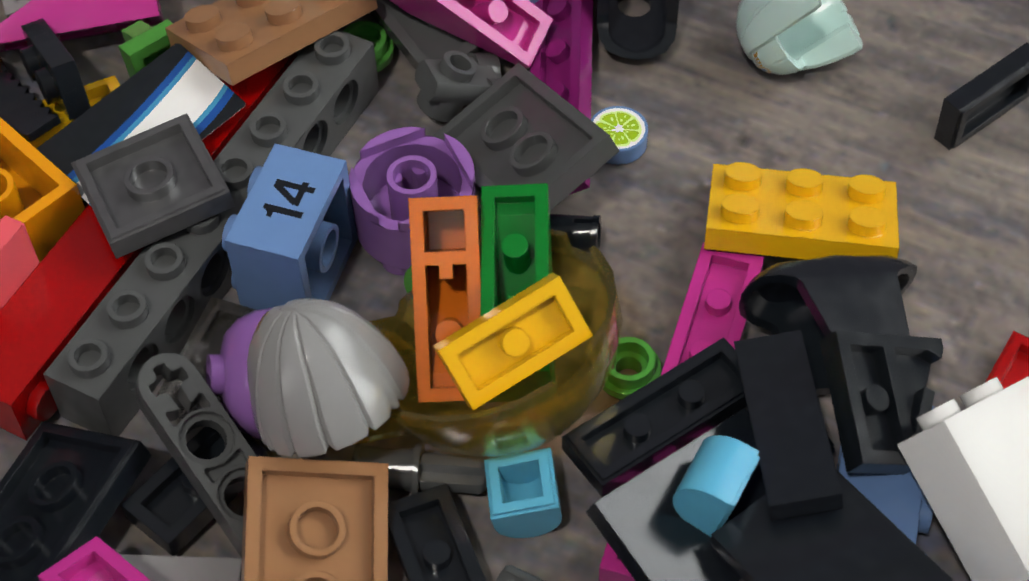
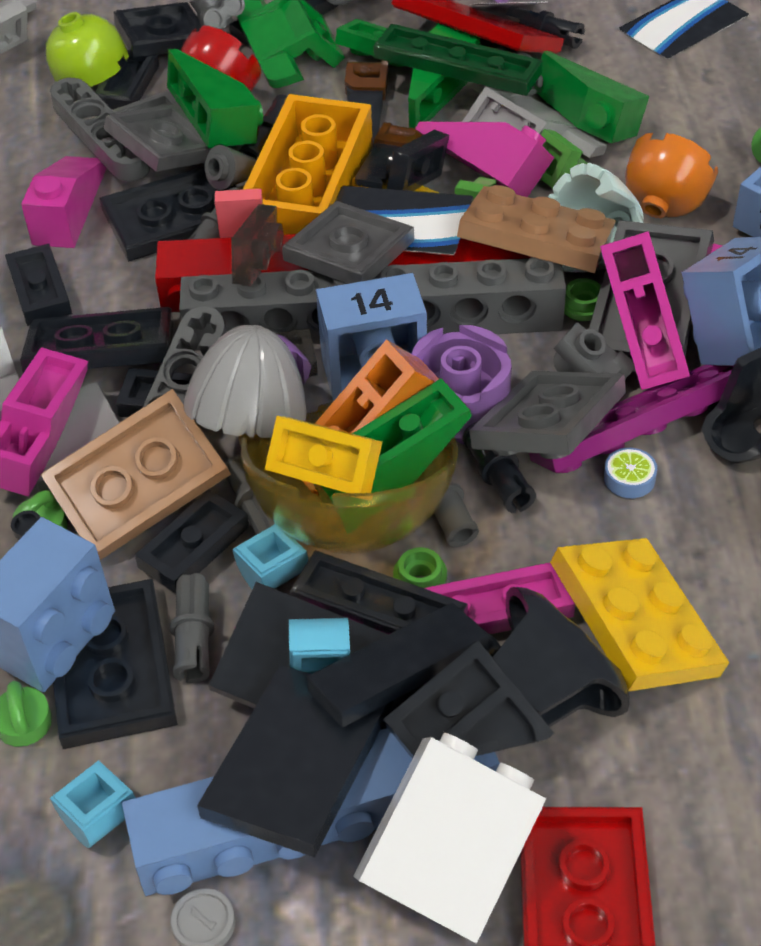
camera: 60 degrees right, 5 degrees down
(89, 267) = (255, 244): none -> clear smoke plate

